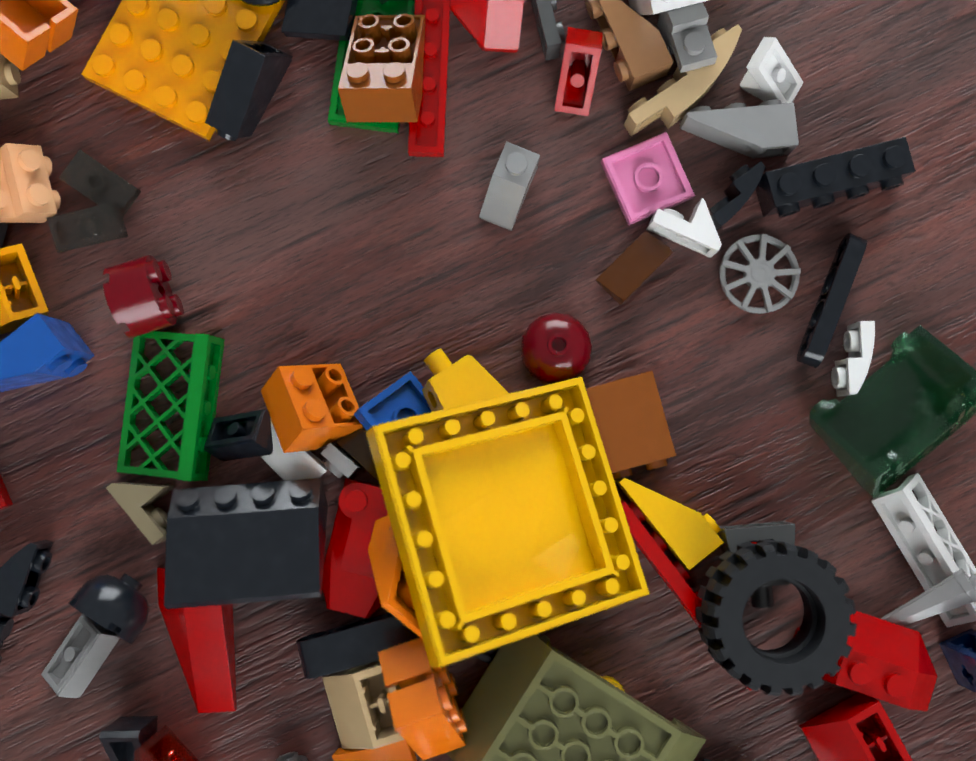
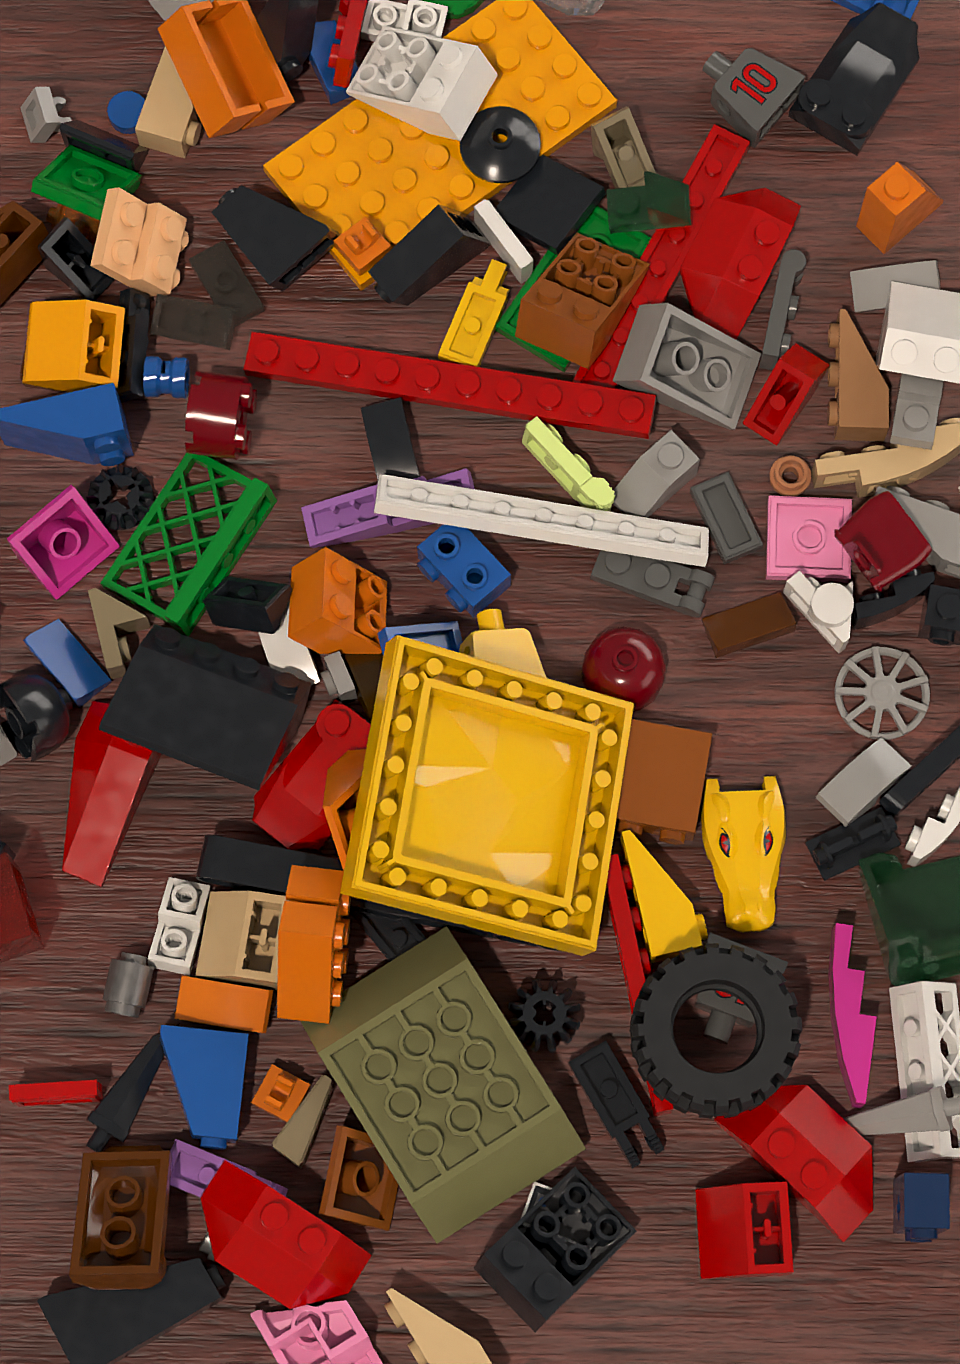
camera: 30 degrees right, 10 degrees down
(46, 269) = (134, 343): none -> black hinge
(67, 455) = (62, 542): none -> dark pink slope
(84, 283) = (166, 377): none -> blue wheel
(114, 390) = (113, 514): none -> black gear
(115, 128) = (273, 236): none -> black slope
(120, 548) = (67, 662): none -> blue slope
(190, 103) = (362, 246): none -> orange tile
(290, 253) = (390, 439): none -> black slope
(300, 48) = (503, 240): none -> white tile
(309, 122) = (476, 318): none -> yellow hinge
(311, 715) = (179, 926): none -> white slope
(314, 185) = (450, 385): none -> red plate
(315, 306) = (353, 516): none -> medium lavender slope
(394, 326) = (463, 568): none -> blue brick
(436, 262) = (542, 520): none -> white tile
(438, 209) = (568, 469): none -> yellowish green hinge
(490, 82) = (687, 365): none -> light grey slope
(542, 265) = (654, 580): none -> dark grey plate
(577, 191) = (726, 518): none -> dark grey tile
(610, 125) = (790, 464): none -> nougat plate
(612, 659) = (559, 1015): none -> black gear
(698, 224) = (831, 605): none -> white tile
(707, 688) = (614, 1099): none -> black hinge
(713, 444) = (745, 844): none -> yellow animal
(714, 153) = (883, 540): none -> dark red piece
(780, 351) = (863, 781): none -> light grey slope
(793, 401) = (844, 846): none -> black hinge
(862, 549) = (851, 1030): none -> dark pink slope

